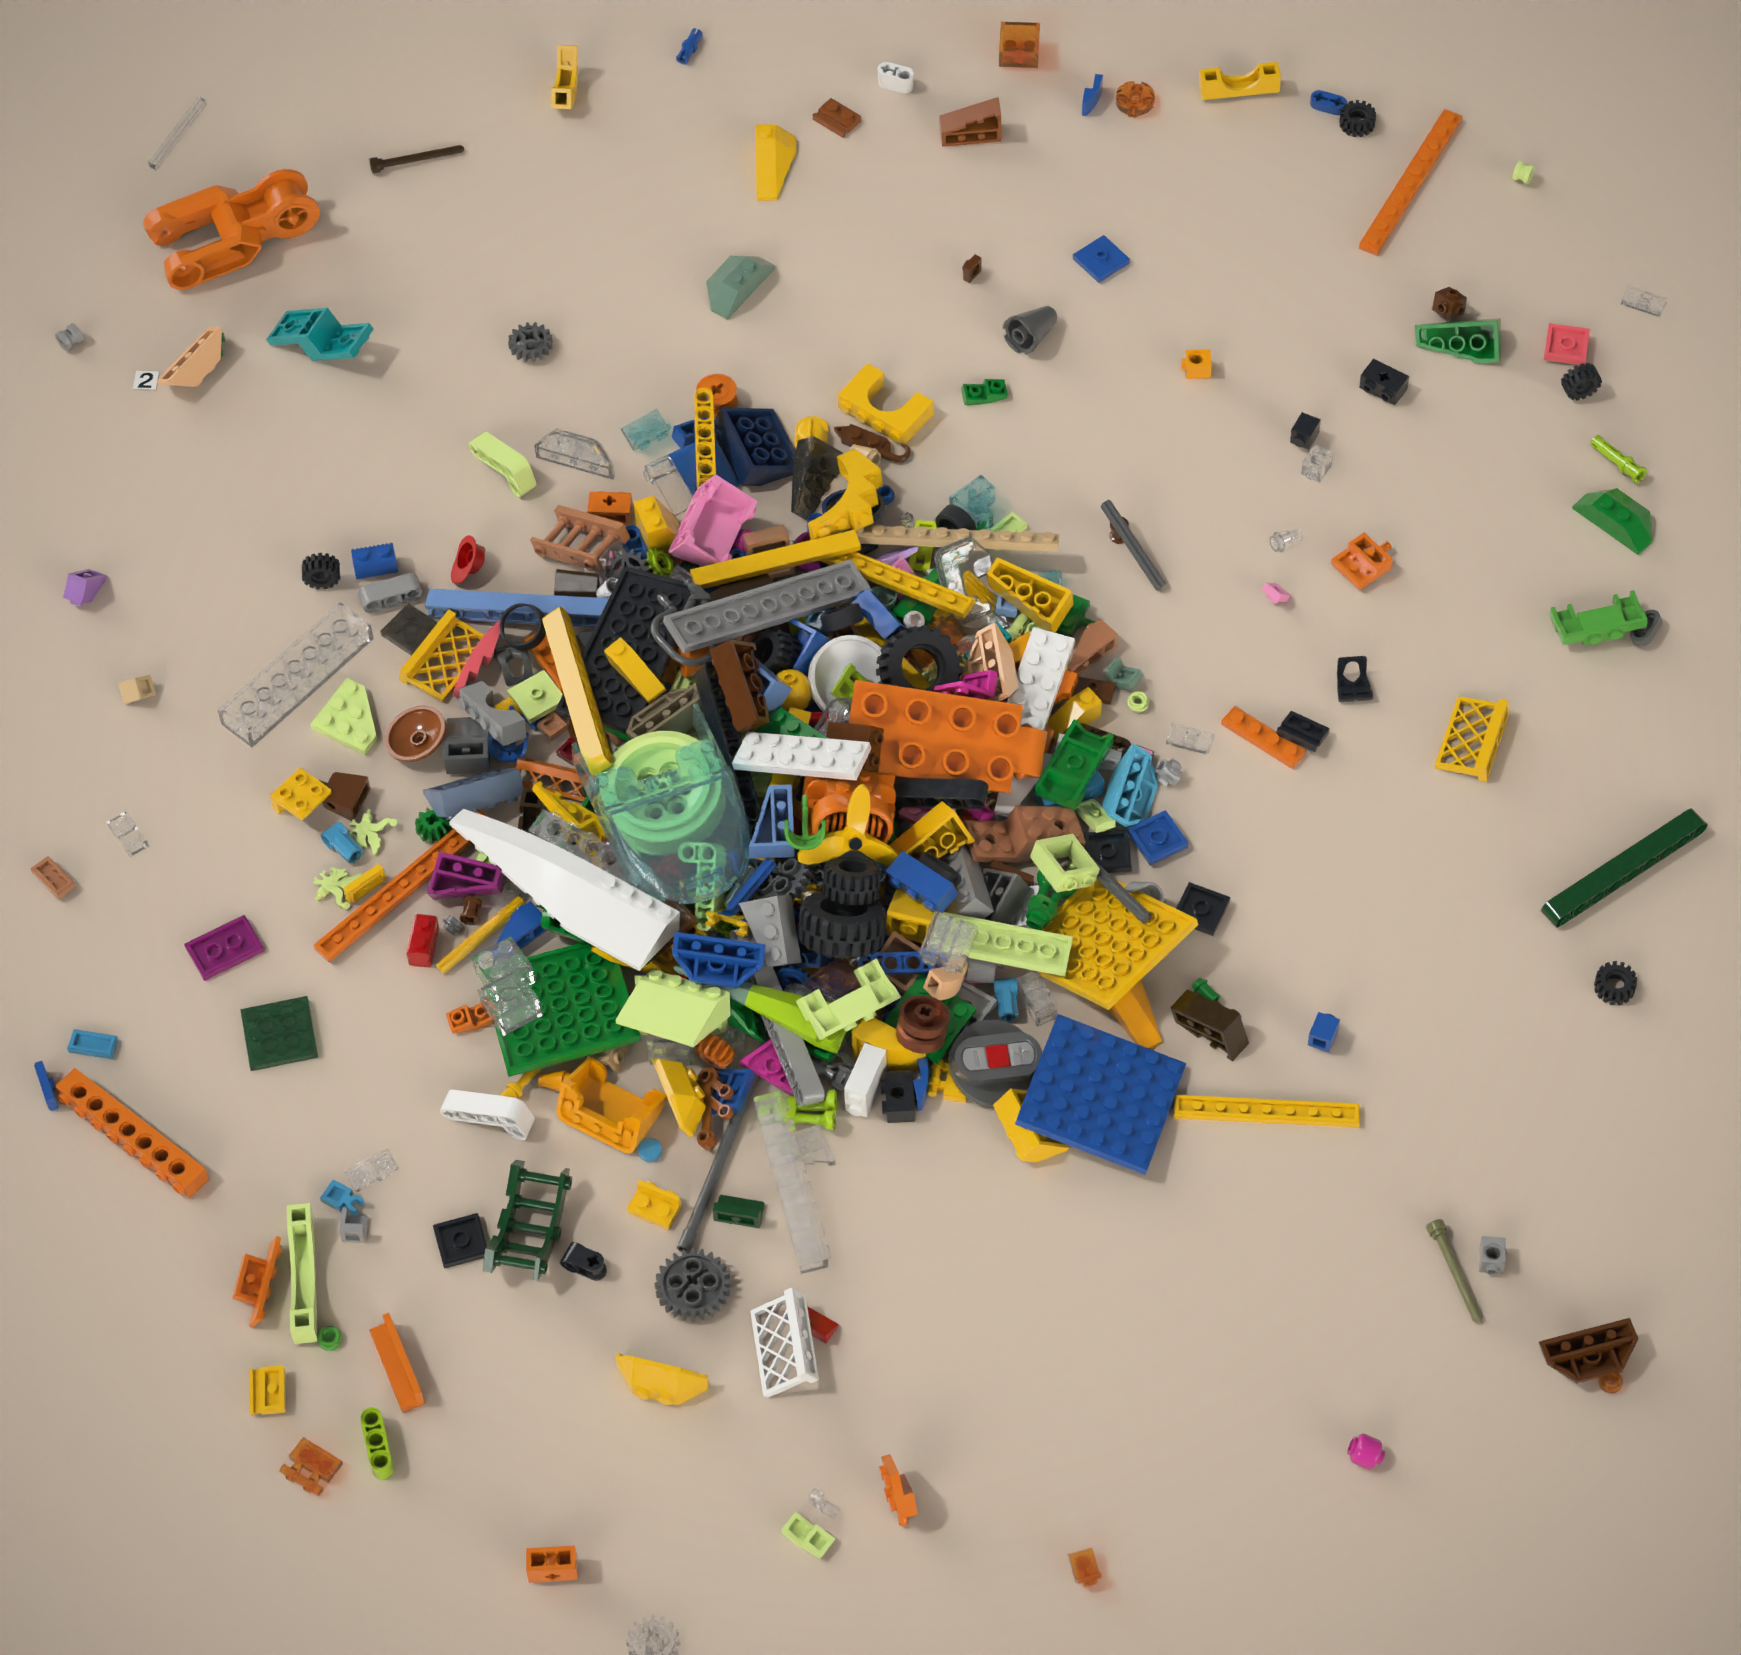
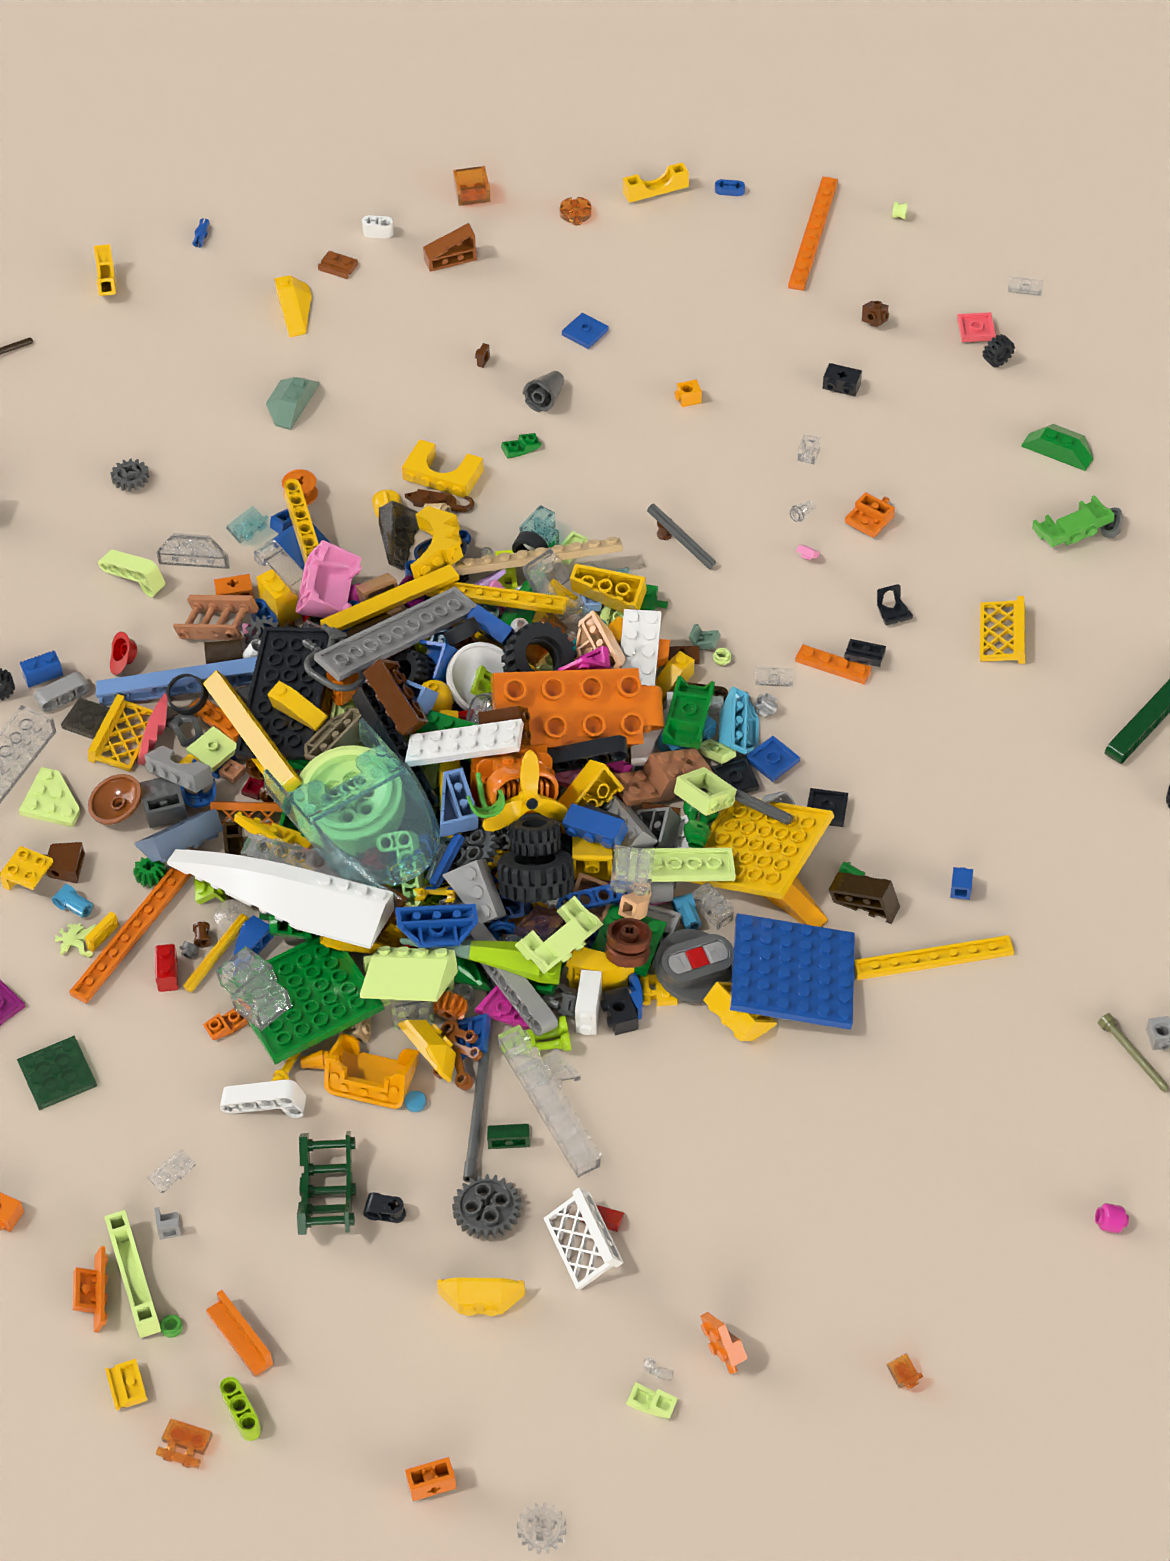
camera: 15 degrees left, 5 degrees down
(341, 1196) = (148, 1199): dark azure plate -> none
(368, 829) = (90, 887): yellowish green piece -> none
(460, 1240) = (268, 1214): black tile -> none
(464, 877) = (189, 906): magenta wedge -> none
(654, 557) = (285, 619): lime gear -> none
(654, 1204) = (433, 1146): yellow bracket -> none
(755, 444) = (343, 519): dark blue slope -> none
(1092, 95) = (540, 213): blue slope -> none
(1094, 644) = (673, 618): nougat slope -> none
(1305, 431) = (792, 426): black brick -> none
(1357, 110) = (761, 200): black tyre -> none
(1463, 339) = (898, 337): green wedge -> none
(1625, 463) = (1053, 405): lime pin -> none

